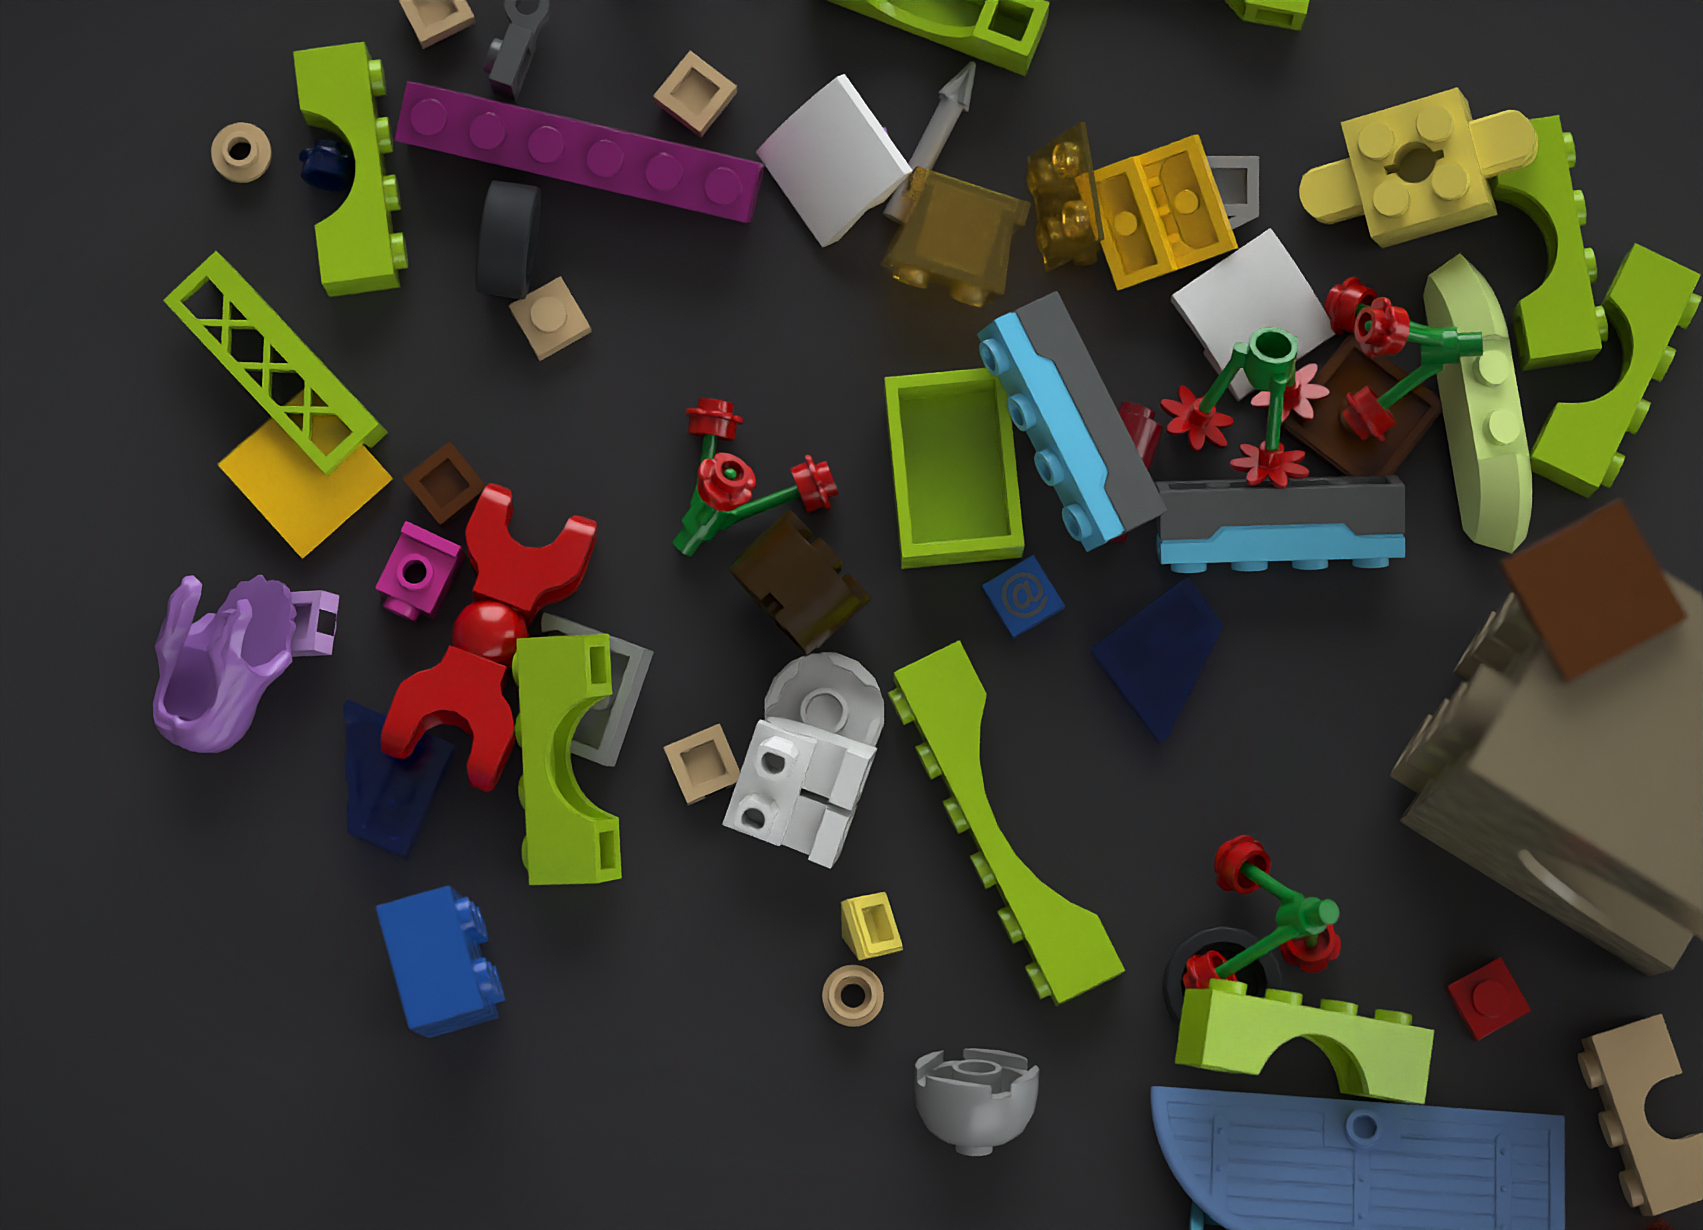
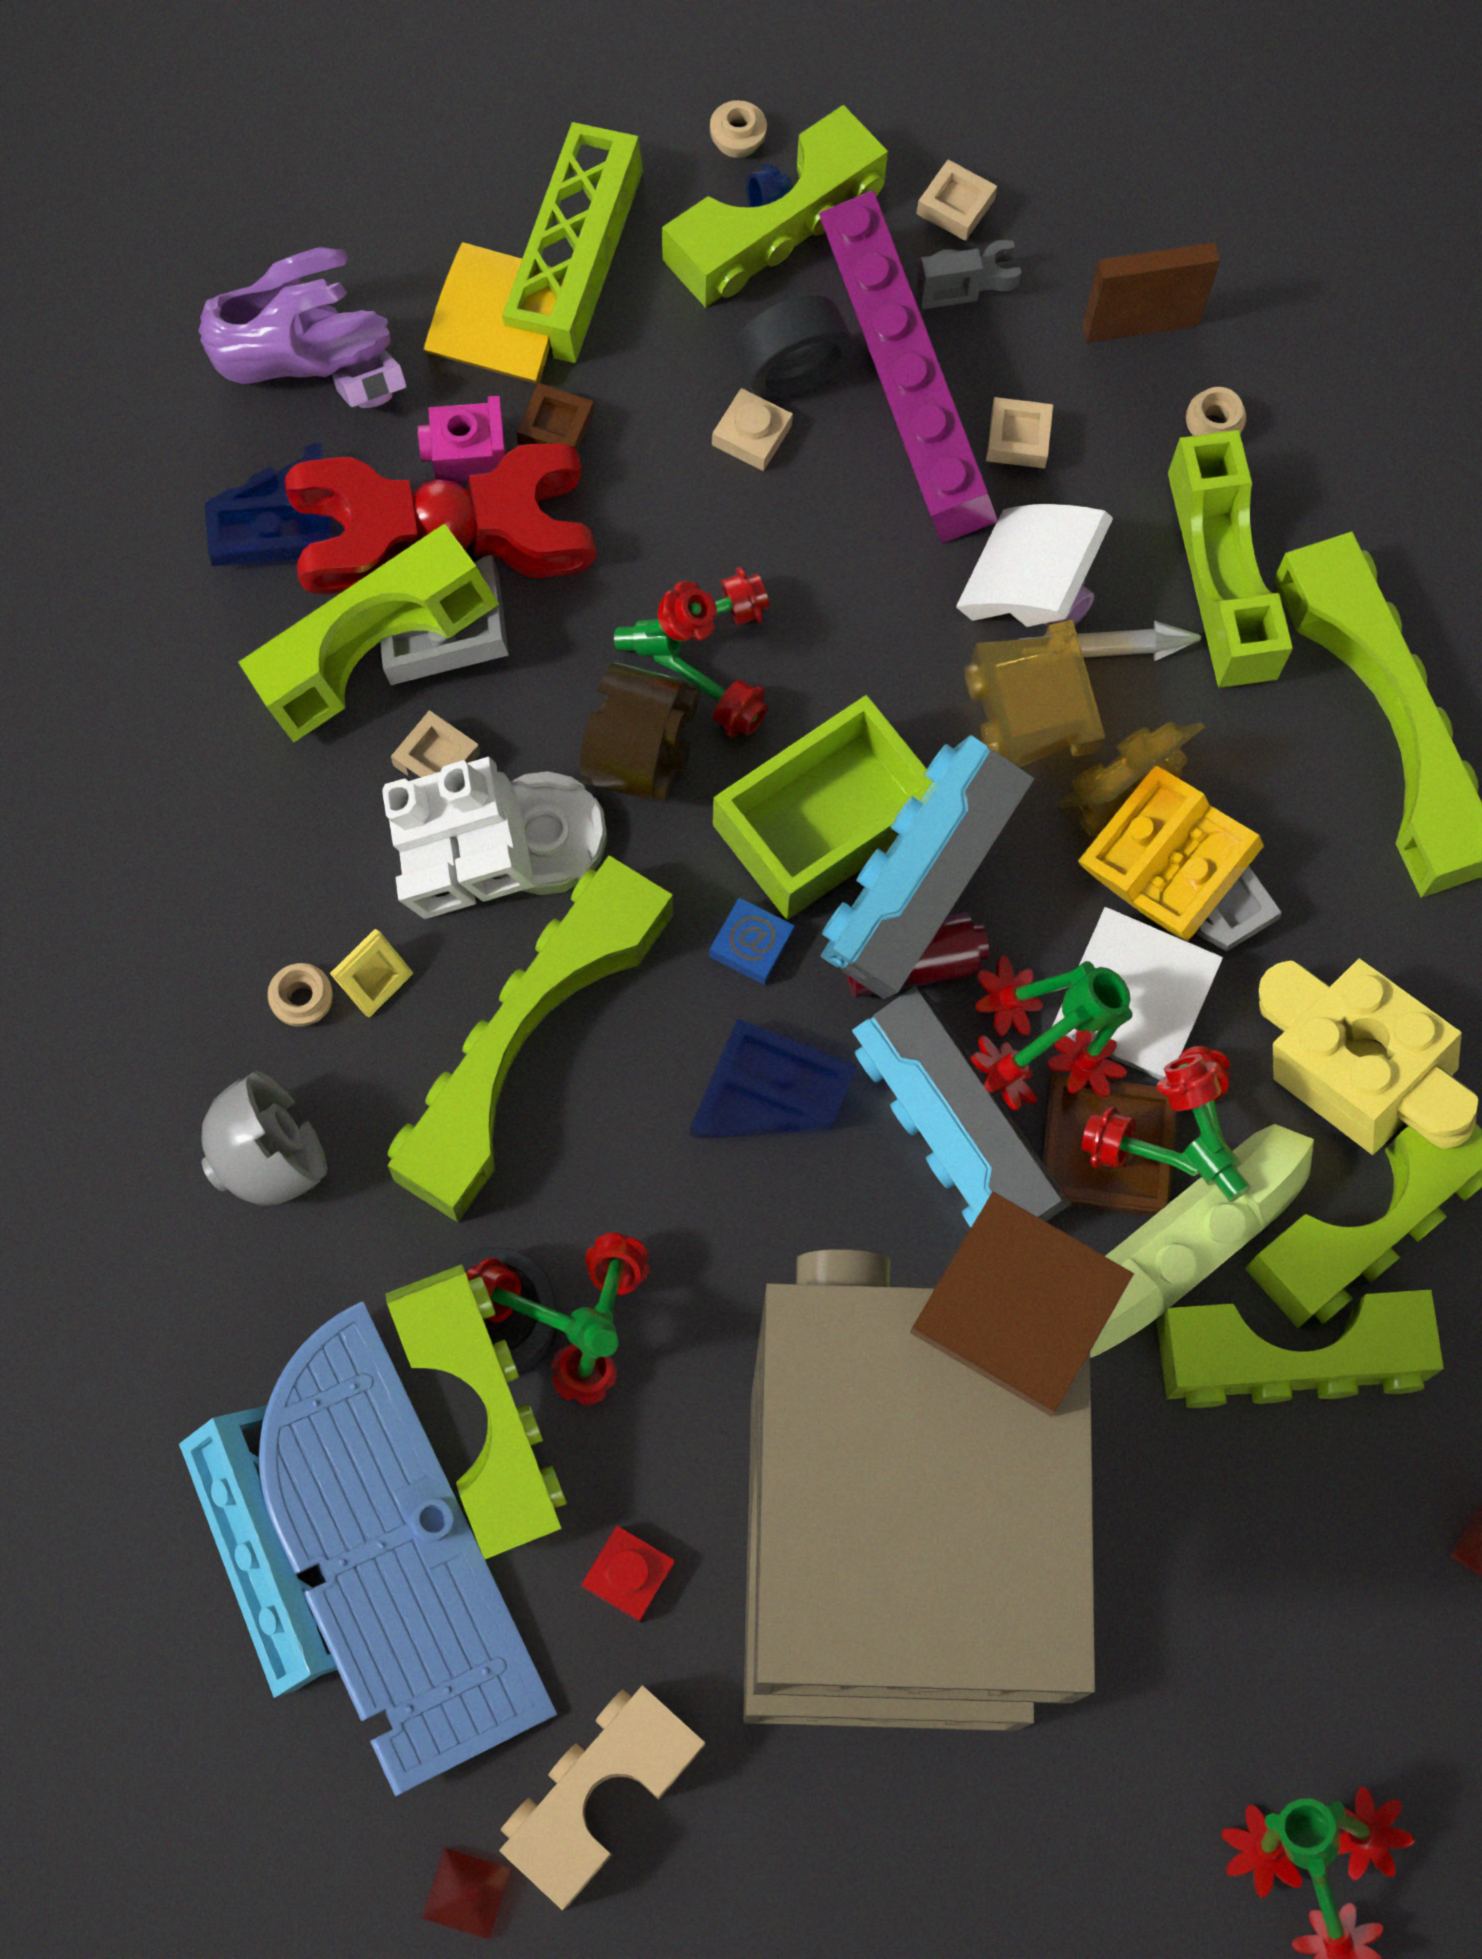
camera: 55 degrees right, 10 degrees down
(440, 962) = (118, 613): blue brick -> none

